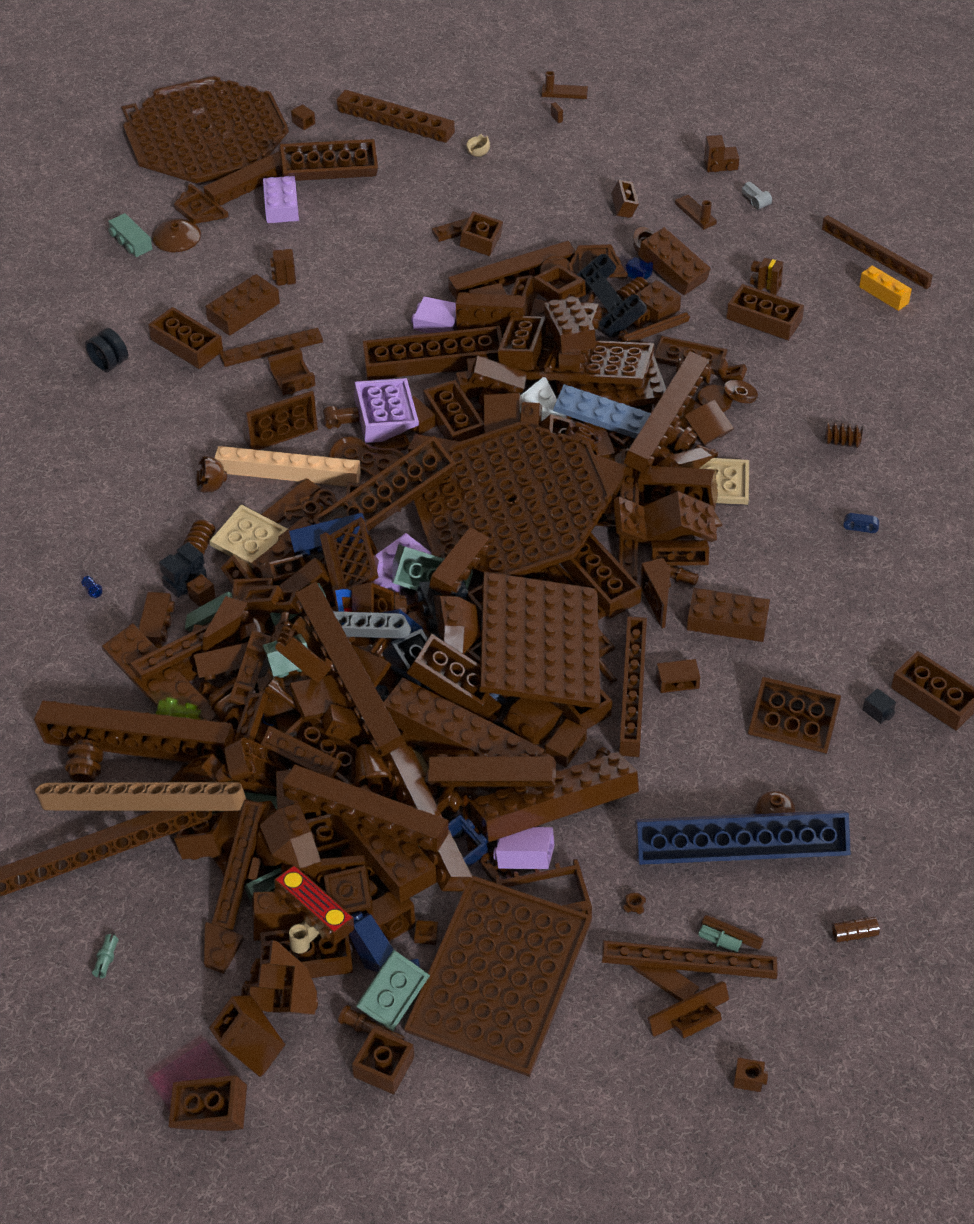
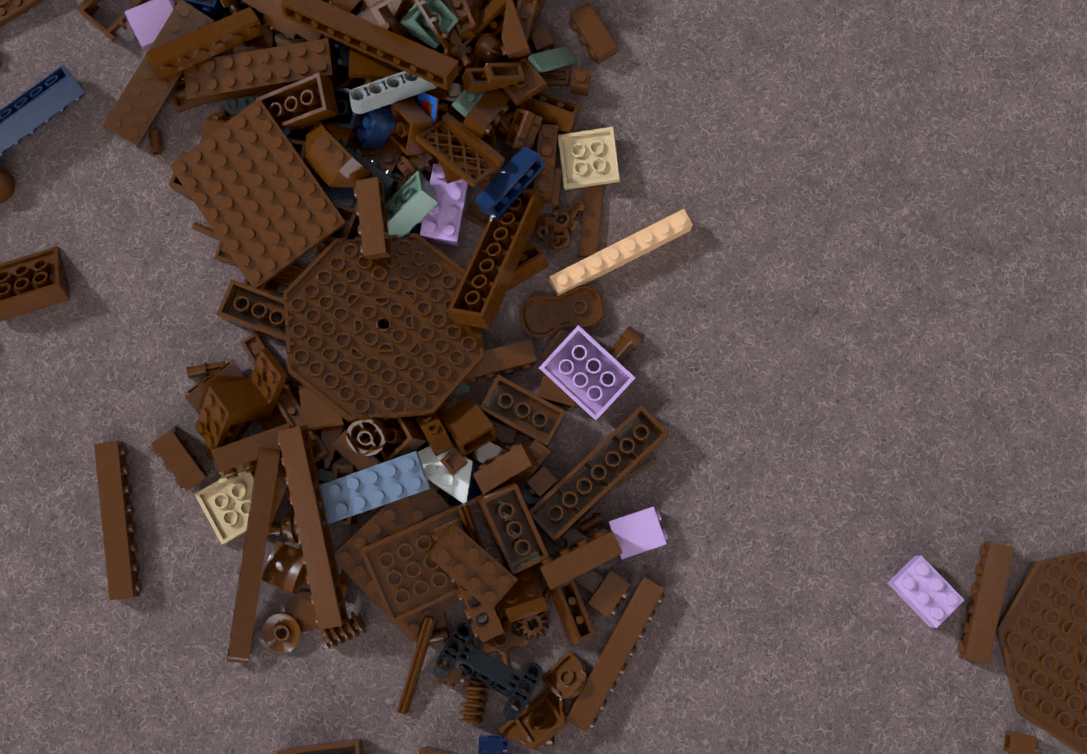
camera: 145 degrees right, 30 degrees up
(93, 588) = (672, 32): clear blue pin -> none
(106, 349) = (893, 265): black wheel -> none
(130, 235) = (1022, 434): sand green brick -> none
(176, 235) = (971, 475): reddish brown dish -> none
(182, 569) = (607, 83): black brick -> none
(185, 337) = (841, 335): reddish brown brick -> none
(198, 206) = (999, 524): reddish brown wing -> none
(200, 535) = (627, 131): reddish brown piece -> none
(212, 473) = (675, 197): reddish brown cylinder -> none
(242, 304) = (830, 417): reddish brown brick -> none
(271, 347) = (760, 389): reddish brown plate -> none
(280, 421) = (666, 289): reddish brown slope -> none
(284, 267) = (832, 487): reddish brown brick -> none
(290, 372) = (712, 366): reddish brown panel -> none
(329, 159) = (923, 676): reddish brown brick -> none
(449, 230) = (720, 683): reddish brown plate -> none
(481, 233) = (682, 681): reddish brown brick -> none
(531, 396) = (454, 462): none -> reddish brown tile
(566, 742) = (188, 133): reddish brown brick -> none
(574, 284) = (521, 643): reddish brown window -> none
(633, 687) = (168, 221): reddish brown brick -> none
(634, 898) = (51, 39): reddish brown plate -> none
(655, 587) = (211, 336): reddish brown slope -> none
(660, 300) = (439, 705): reddish brown brick -> none
(671, 349) = (365, 657): reddish brown tile -> none
(678, 675) = (141, 259): reddish brown brick -> none
(724, 428) = (253, 555): none -> reddish brown beam
(728, 614) = (135, 348): reddish brown brick -> none
(733, 372) = (307, 656): reddish brown bracket -> none
(744, 527) = (179, 459): none -> reddish brown wedge
(822, 517) = (117, 520): none -> reddish brown brick
(843, 435) = (152, 641): reddish brown piece -> none
(861, 523) = (79, 536): dark blue beam -> none

